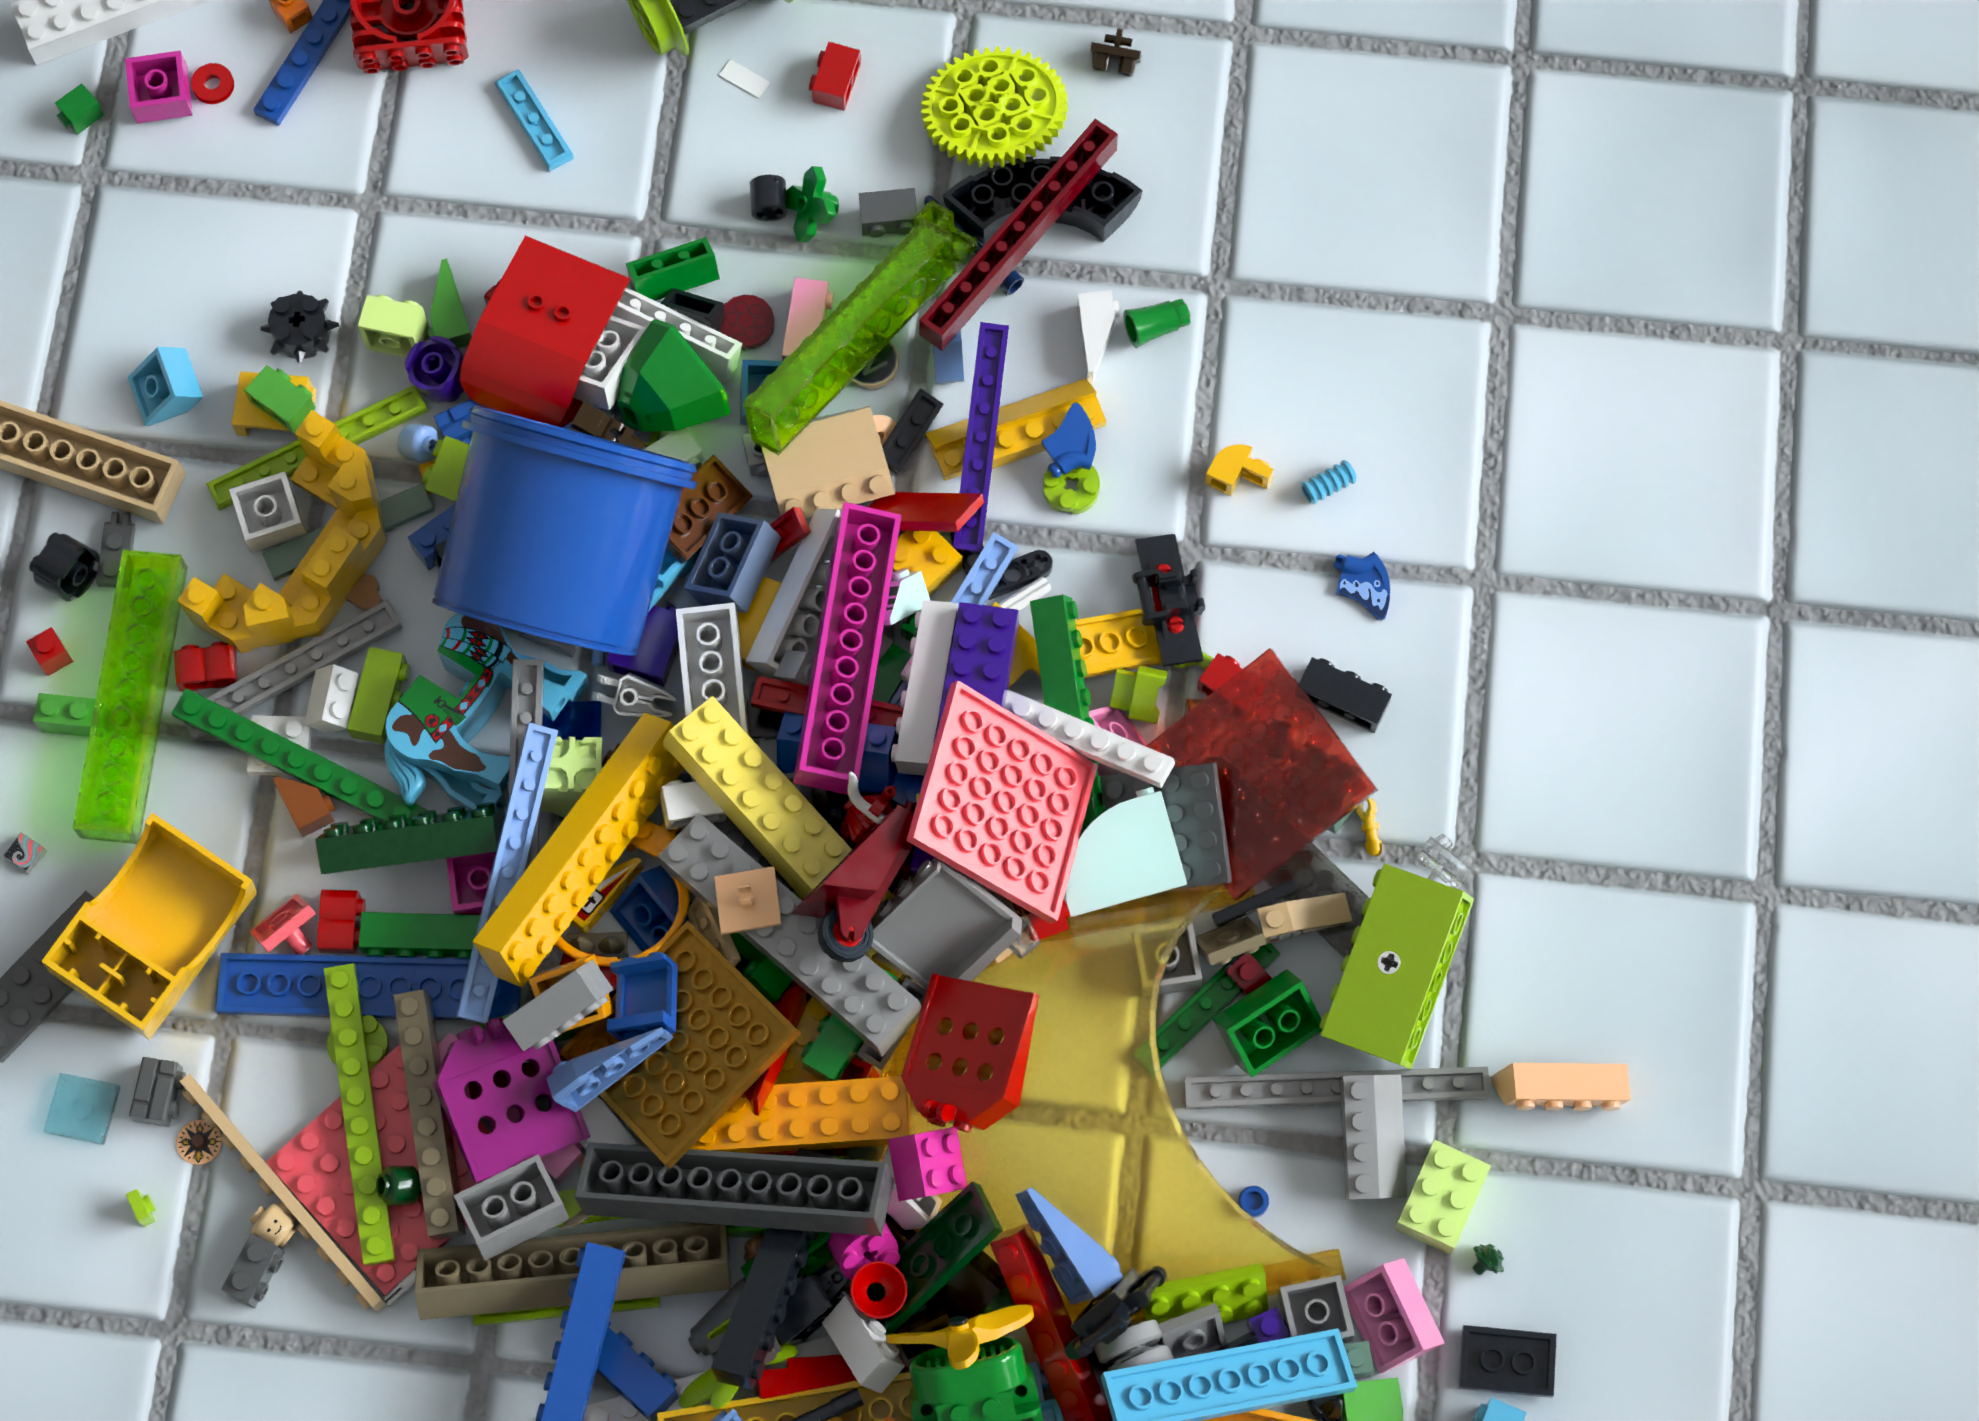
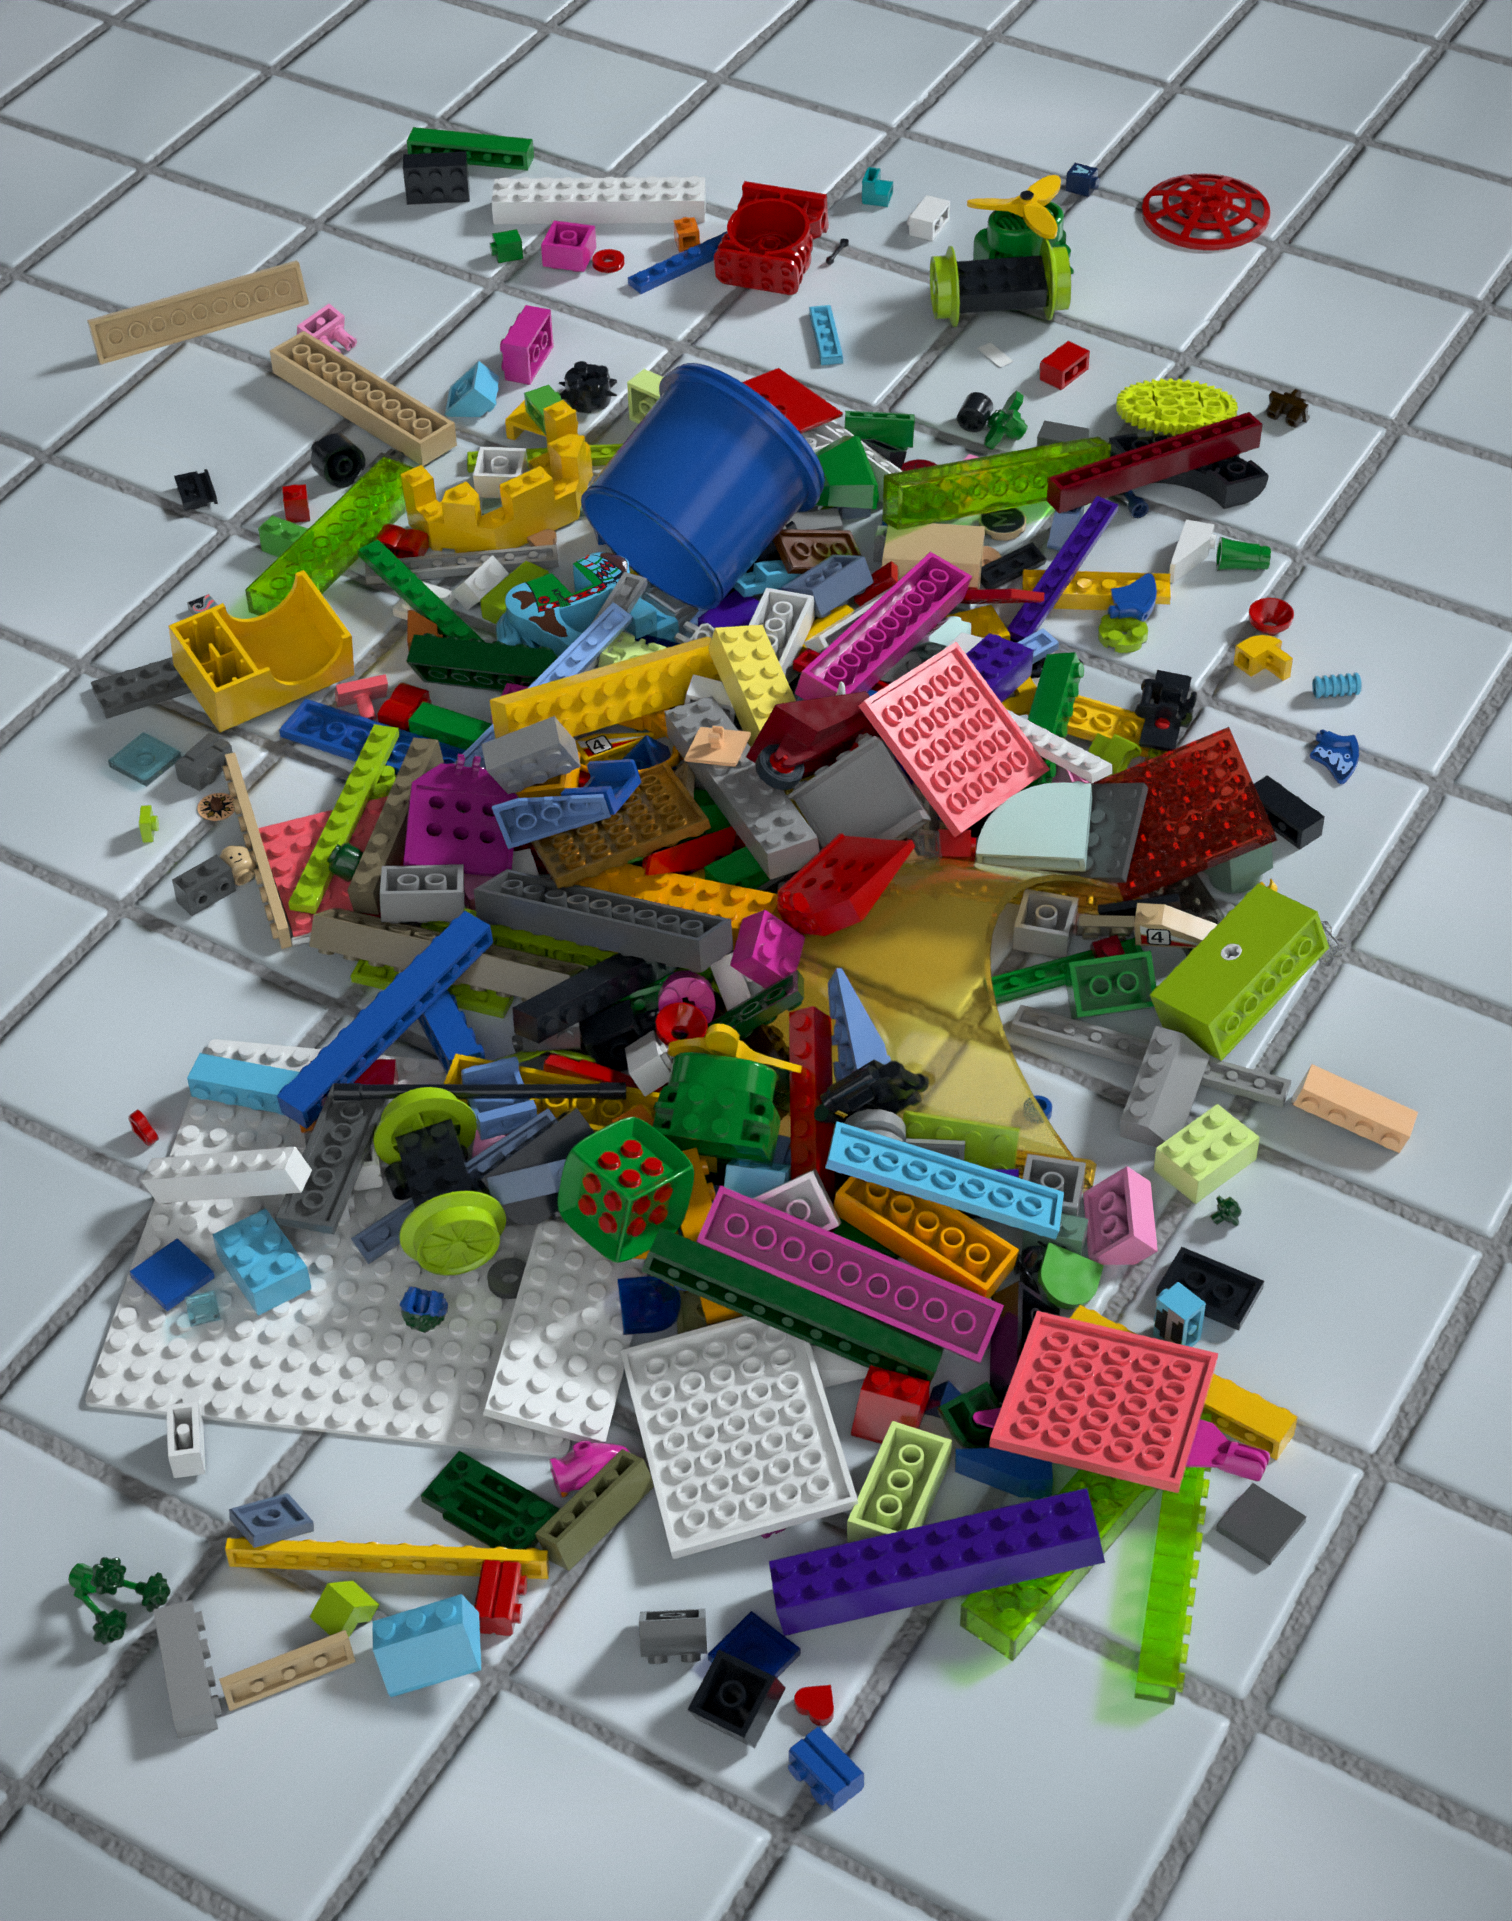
camera: 25 degrees right, 25 degrees down
(194, 285) = (527, 344): none -> dark pink brick
(1222, 392) = (1271, 611): none -> red piece

